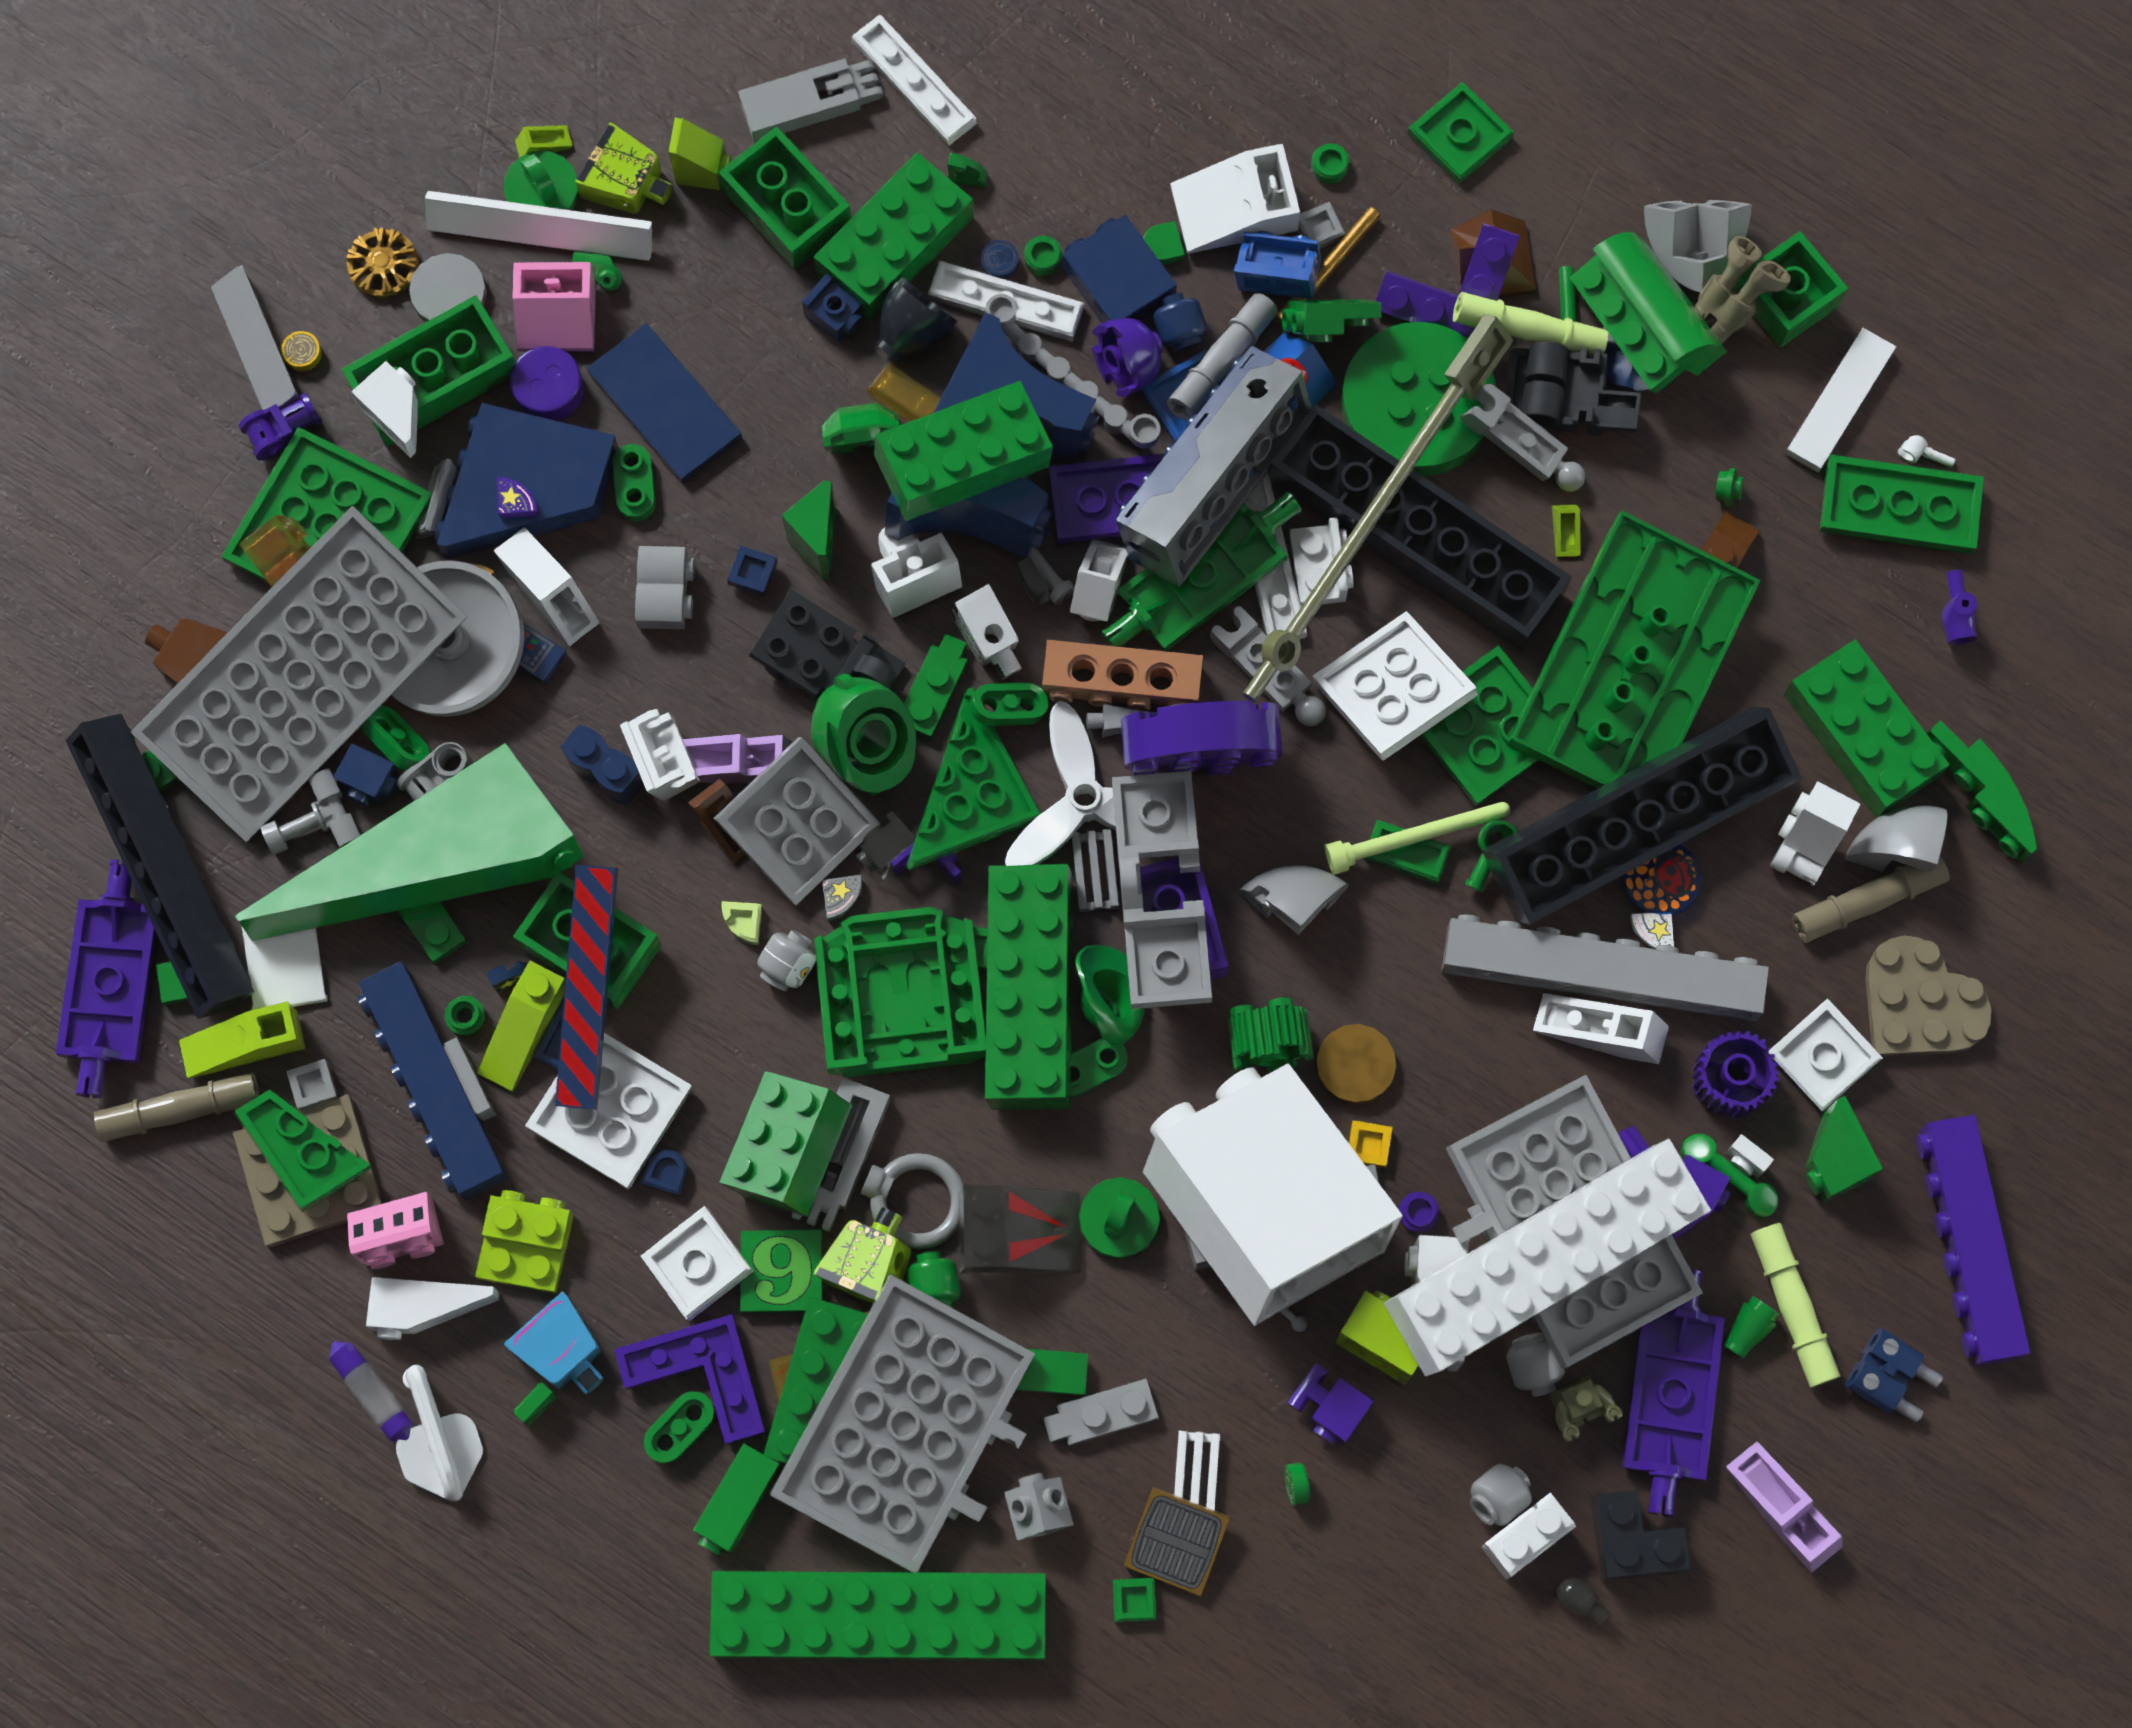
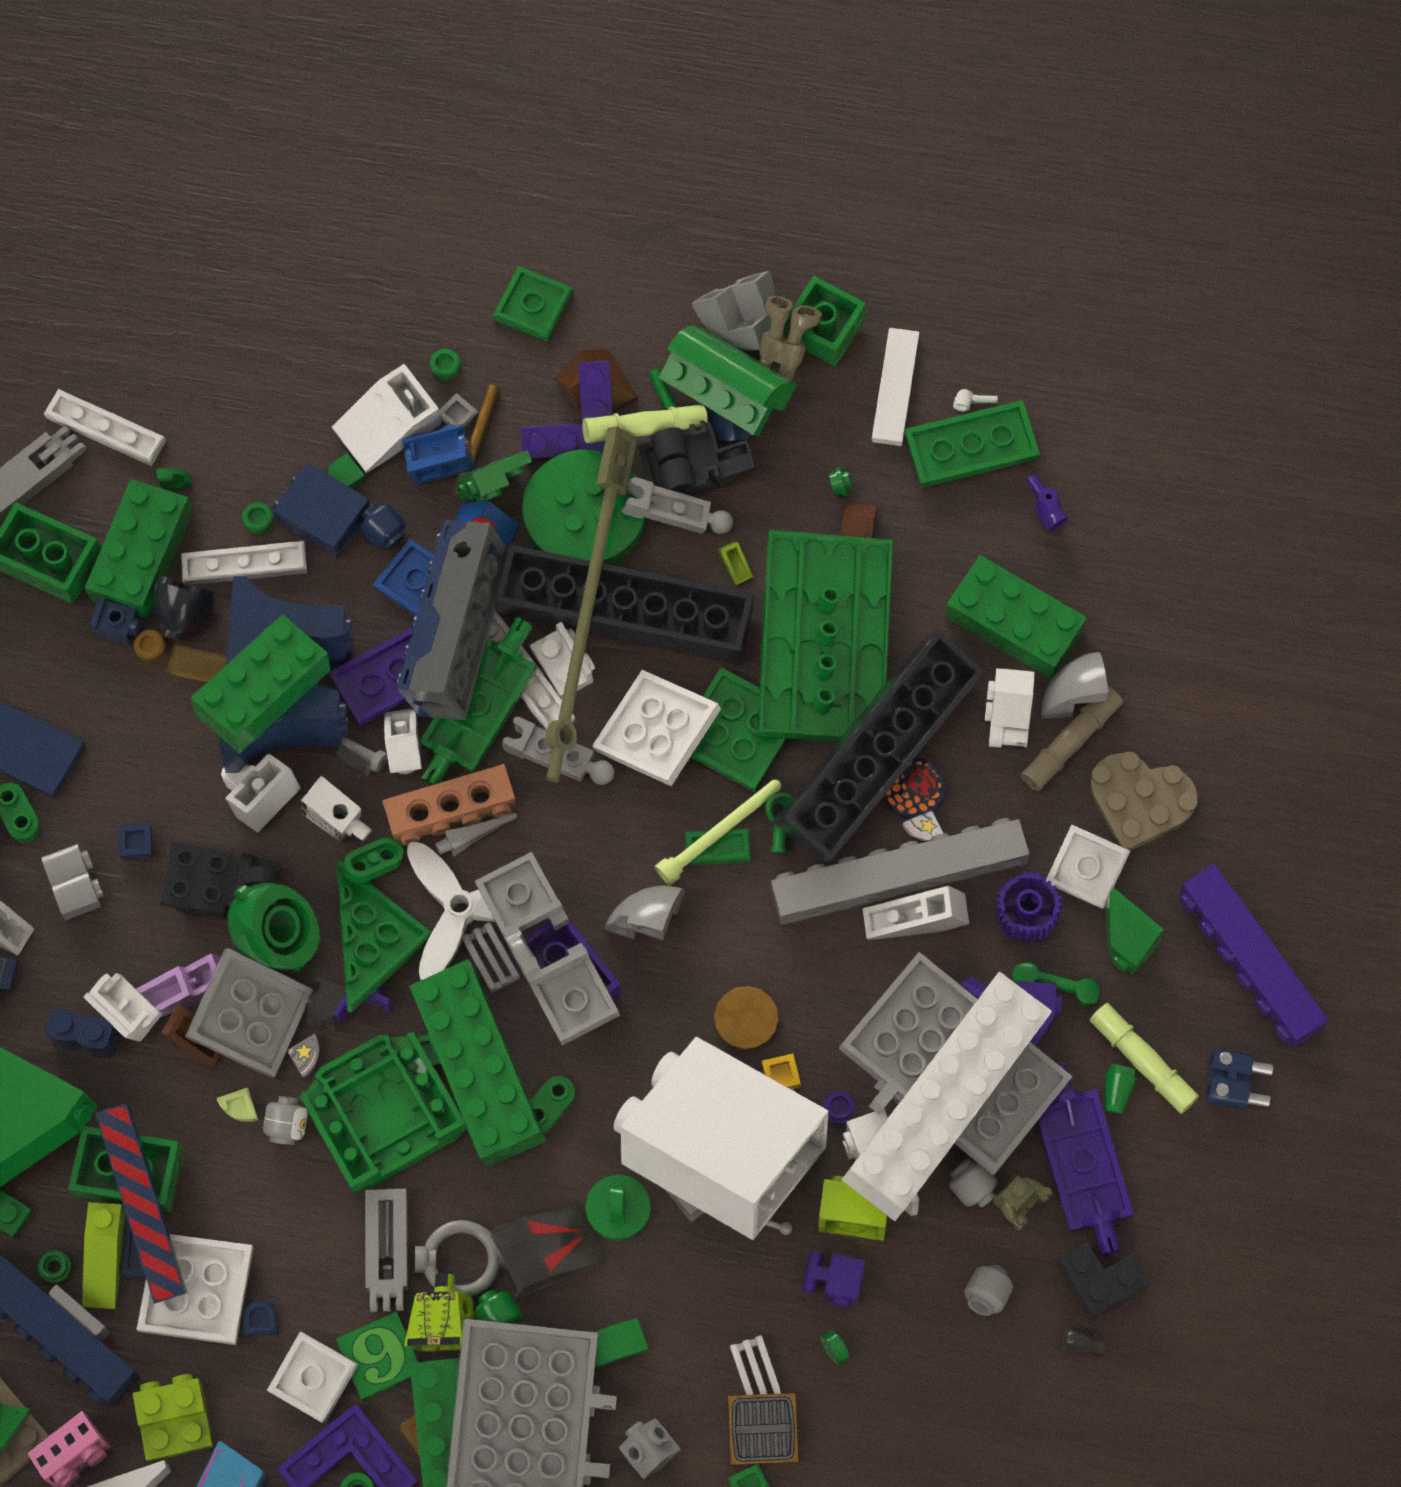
camera: 20 degrees left, 5 degrees down
(504, 979) = (73, 1226): dark blue tile -> none
(786, 1143) = (342, 1257): brick -> none
(811, 527) = (167, 790): green slope -> none
(856, 427) = (170, 701): green slope -> none
(860, 353) = (149, 646): none -> pearl gold tile
(936, 685) = (312, 868): green hinge -> none
(1000, 259) = (226, 534): dark blue tile -> none
(1102, 1413) = (667, 1358): light grey hinge -> none
(1106, 993) = (538, 1043): green hat -> none
(1127, 354) = (353, 565): dark purple cylinder -> none
(1142, 430) = (388, 616): light grey bar -> none
(1202, 737) = (529, 823): dark purple brick -> none
(1217, 363) = (424, 539): light grey piece -> none
(1269, 1035) = (673, 1022): green brick -> none
(1528, 1536) = (1021, 1311): white brick -> none
(1748, 1157) = (1064, 964): white plate -> none
(1785, 1507) = (1200, 1209): lavender slope -> none
(1996, 799) = (1132, 629): green slope -> none

